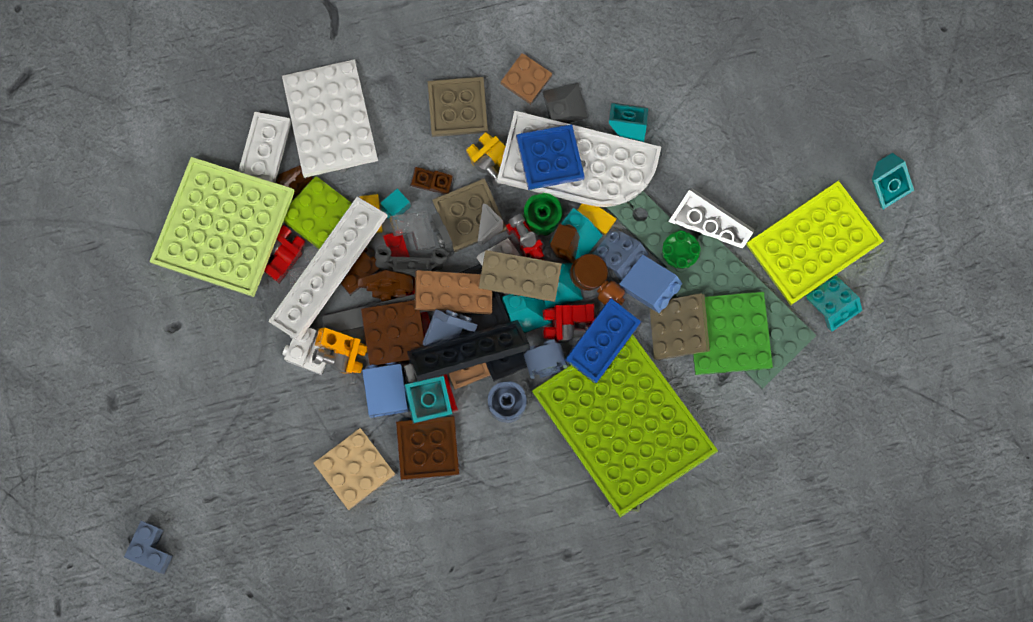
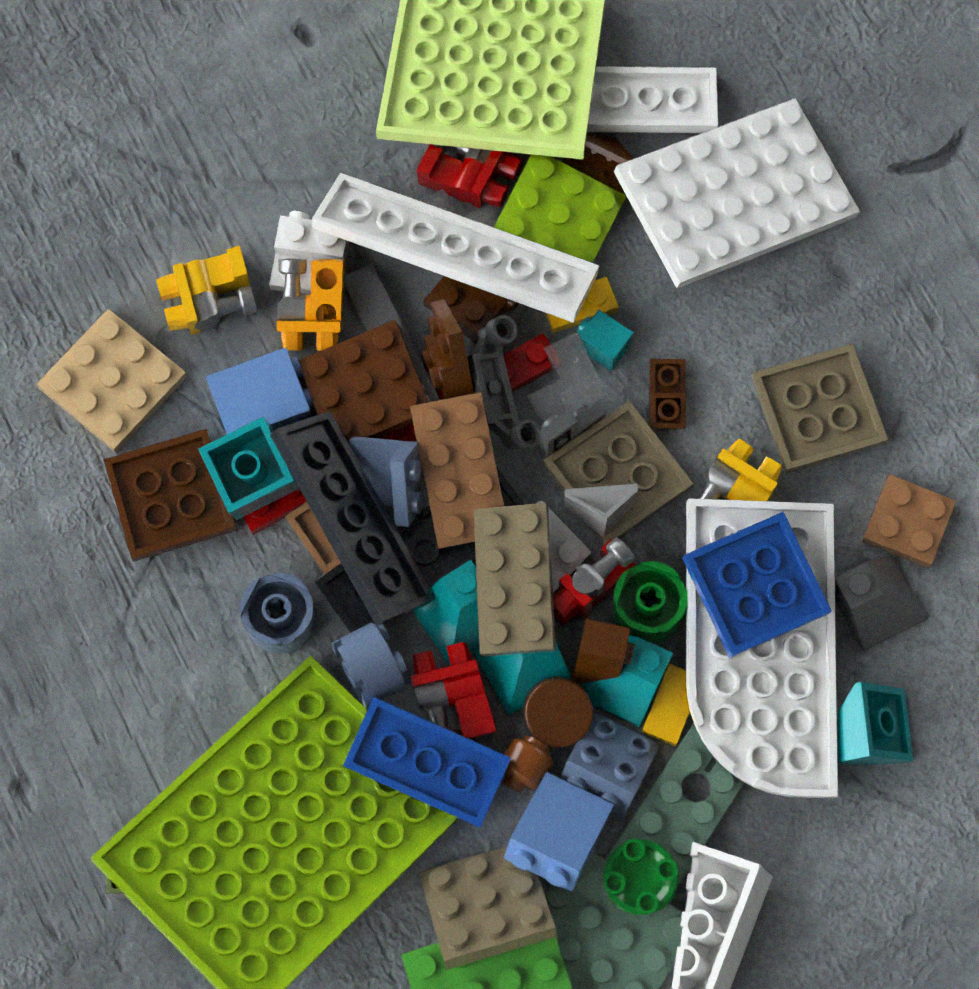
camera: 80 degrees right, 5 degrees down
(317, 412) = (199, 286): none -> yellow hips

